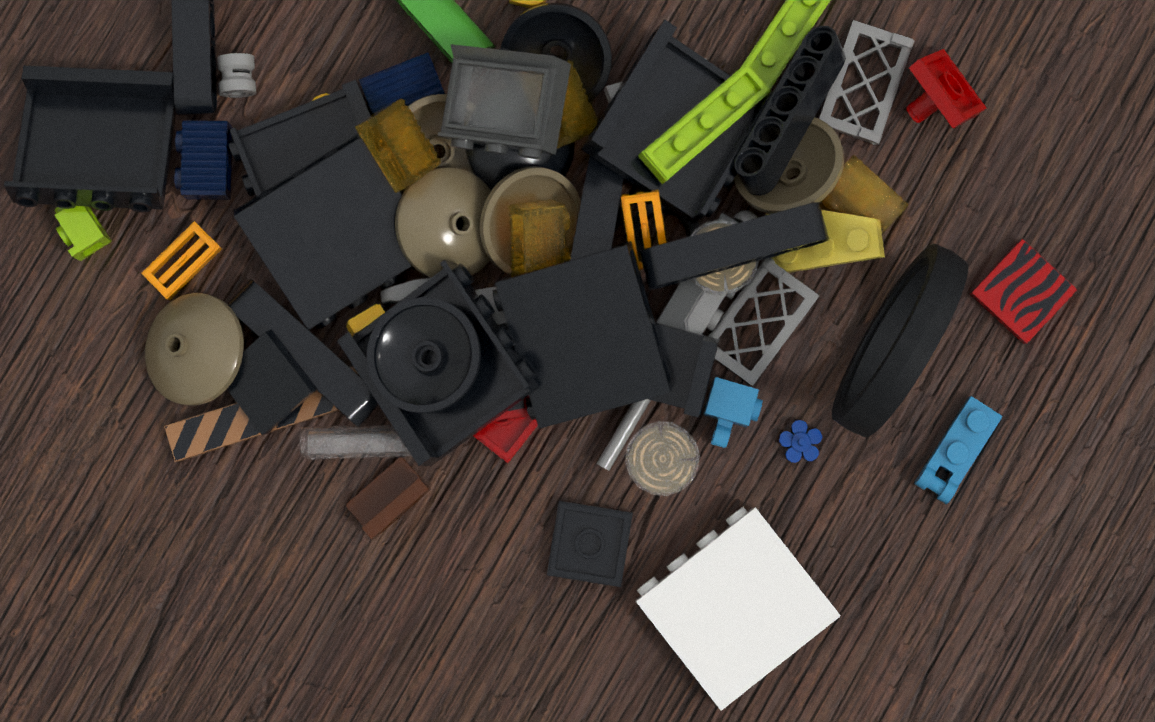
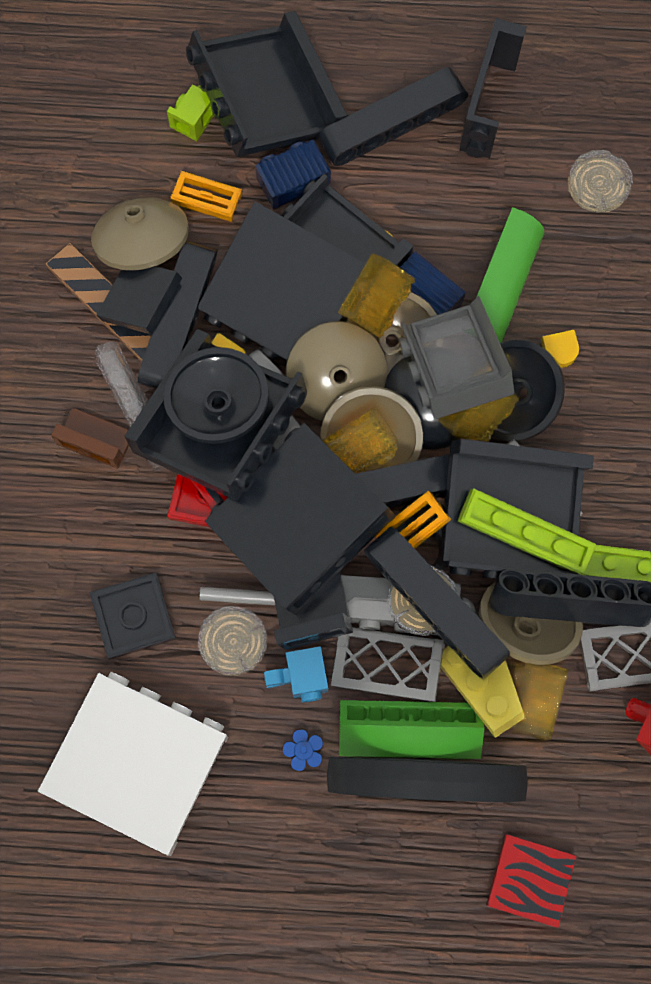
camera: 60 degrees right, 10 degrees down
(236, 75) = (370, 165): light grey wheel -> none
(832, 332) = (409, 729): none -> bright green brick
(958, 448) = (366, 891): dark azure plate -> none

